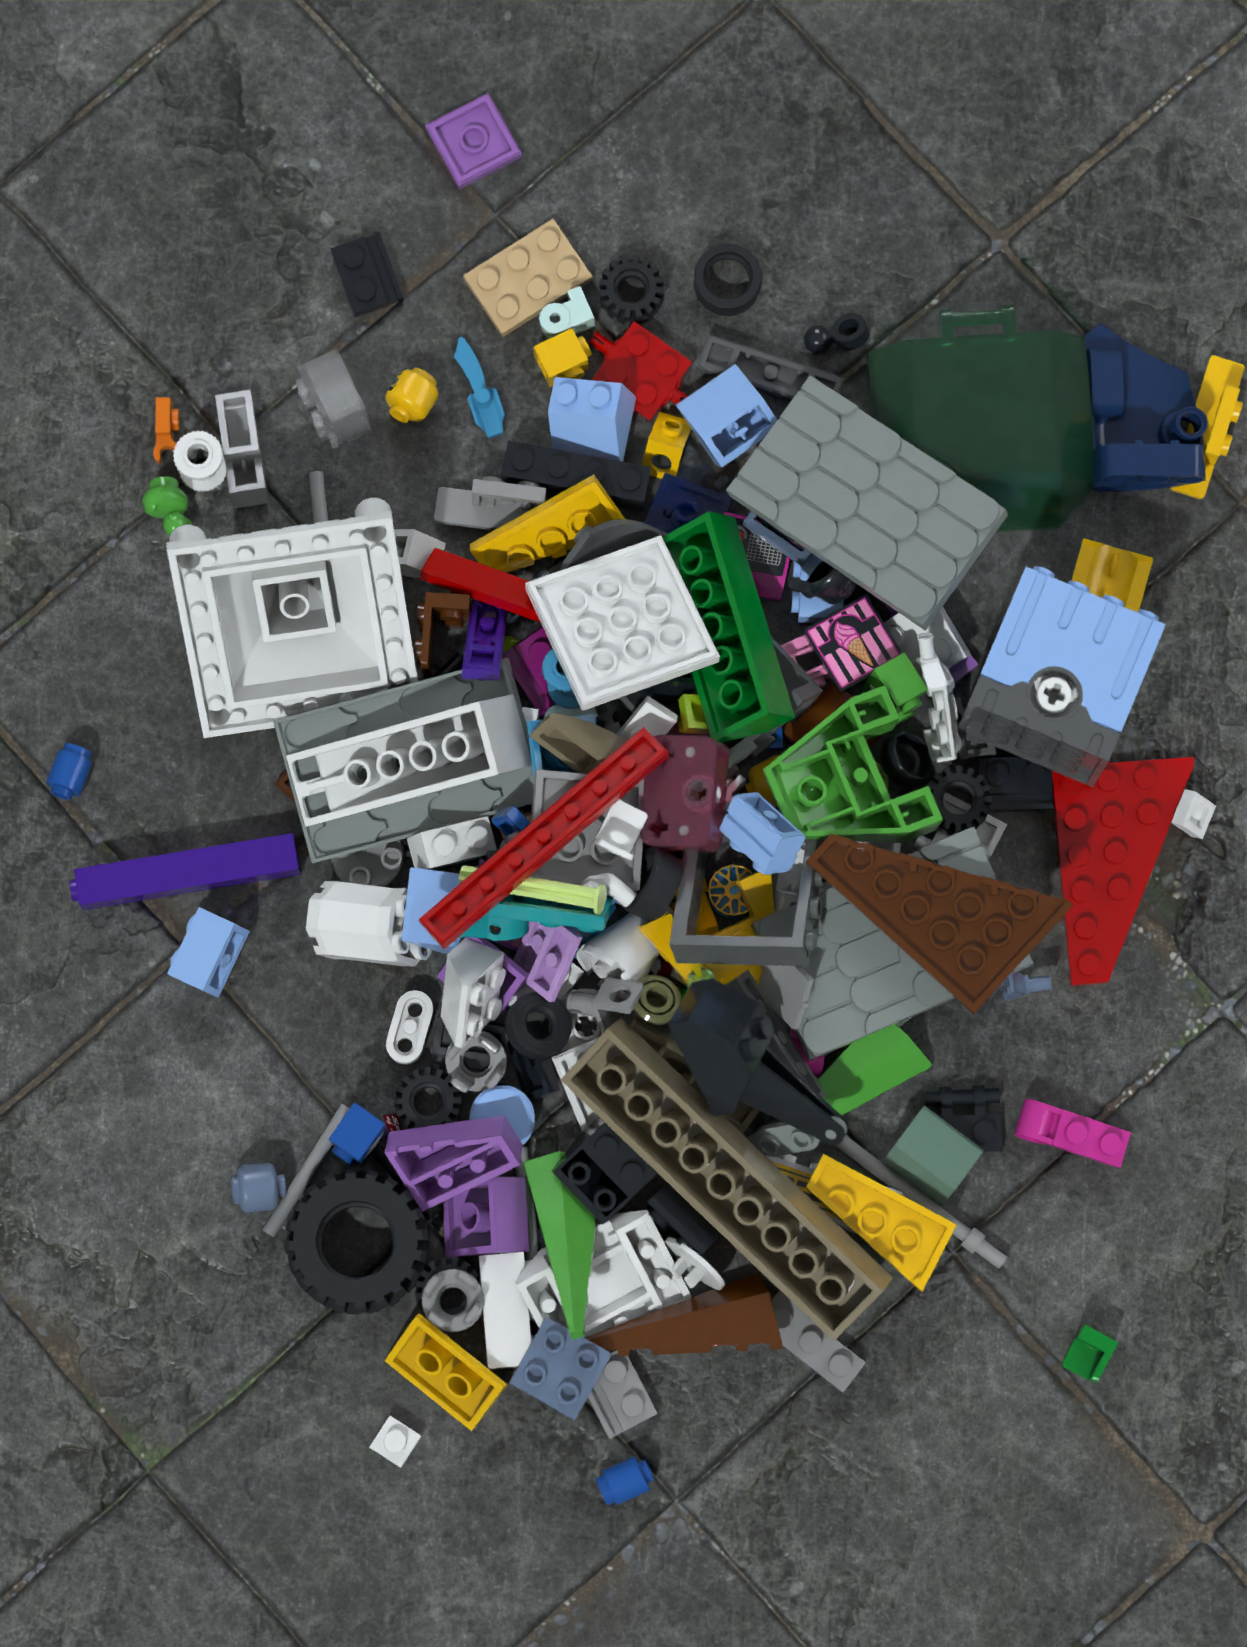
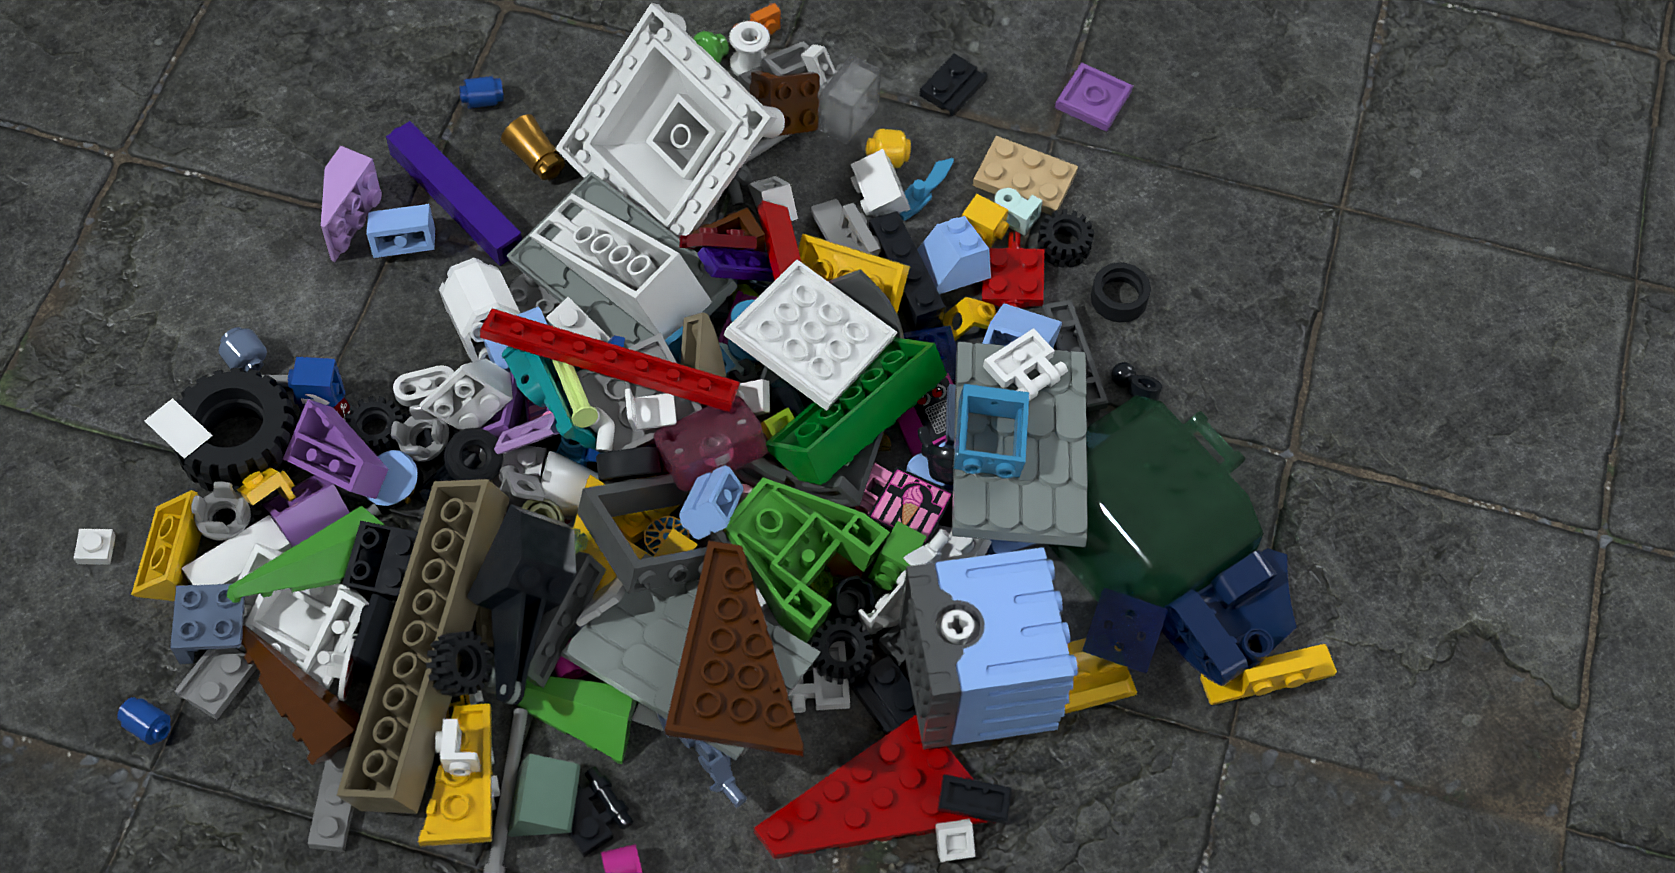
camera: 55 degrees right, 20 degrees down
(127, 982) = (348, 196): none -> lavender slope
(184, 758) = (533, 147): none -> pearl gold plant
(264, 400) = (818, 61): none -> white piece
(302, 475) = (793, 95): none -> reddish brown bracket
(338, 1295) = (178, 428): none -> white sticker
(448, 1243) = (261, 484): none -> yellow bracket
(453, 647) = (710, 238): none -> dark red plate
(457, 436) = (879, 185): none -> white hinge
(782, 1160) = (445, 668): none -> black tyre
(788, 447) = (1021, 357): none -> white plate
(851, 1213) = (449, 745): none -> white bracket
(889, 513) = (994, 403): none -> dark azure window
(1090, 522) = (1147, 619): none -> clear blue plate
(1170, 773) = (974, 799): none -> black plate

